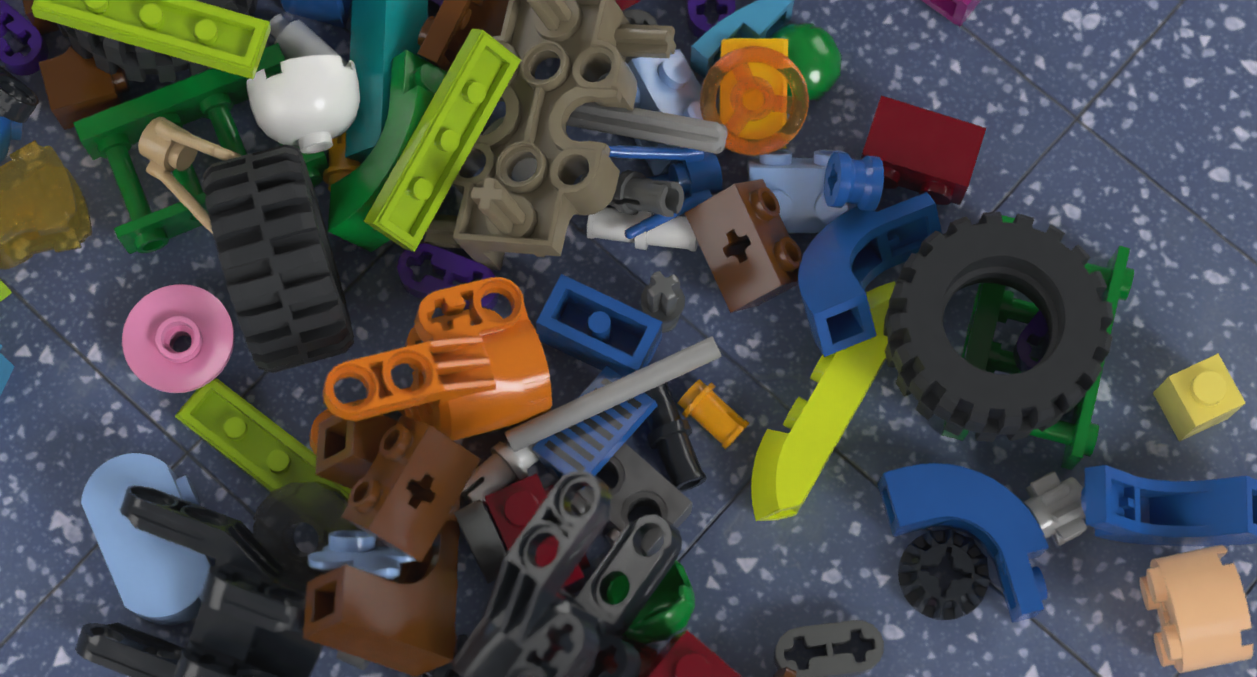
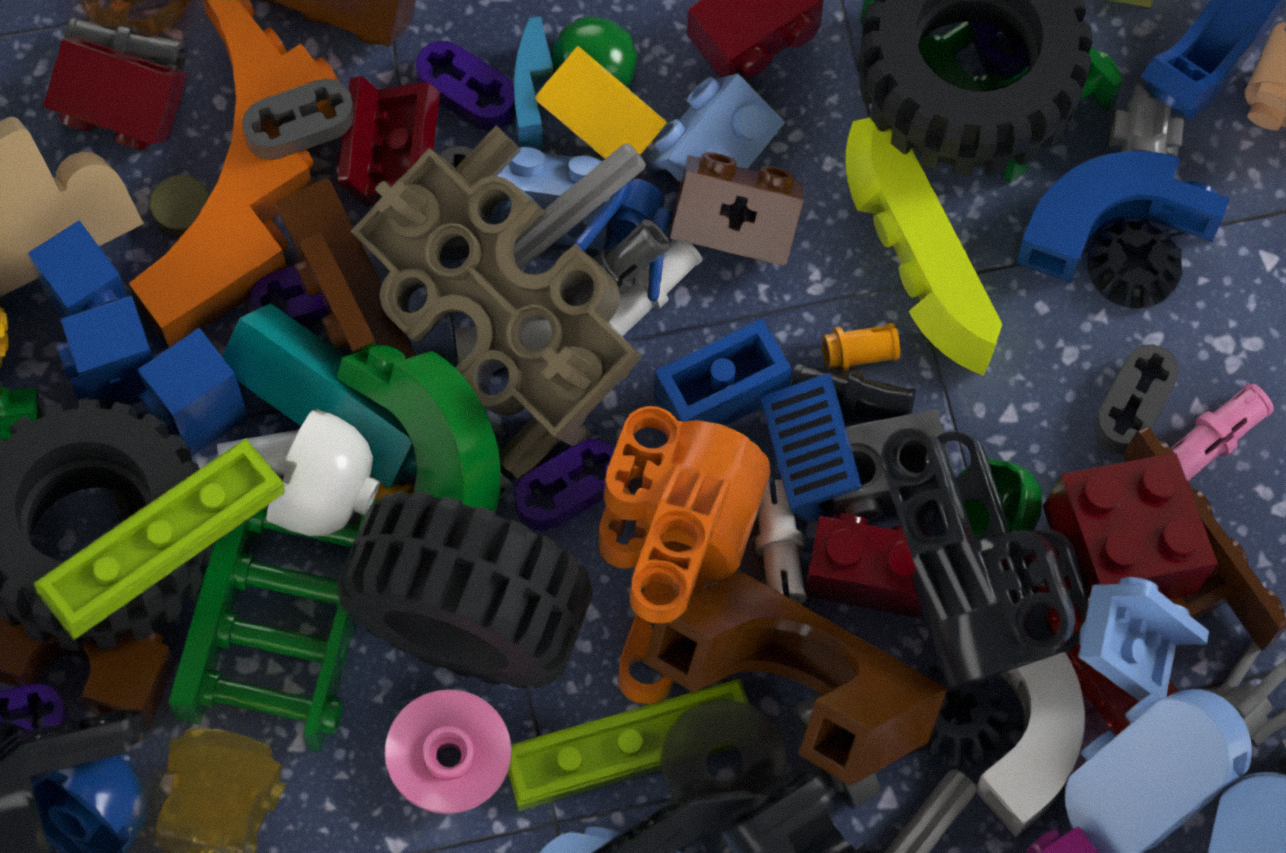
camera: 55 degrees left, 5 degrees down
(175, 148) = (268, 625): tan plant -> none
(359, 551) = (781, 712): light blue plate -> none
(410, 487) = (773, 612): reddish brown brick -> none
(442, 140) = (461, 379): lime tile -> none
(481, 539) = (846, 602): dark grey beam -> none
(613, 394) = (796, 403): light grey bar -> none
(663, 300) = (735, 306): dark grey axle -> none
(738, 62) = (625, 95): clear orange piece -> none
(848, 257) = (844, 169): blue arch -> none
(853, 181) = (751, 81): blue wheel -> none

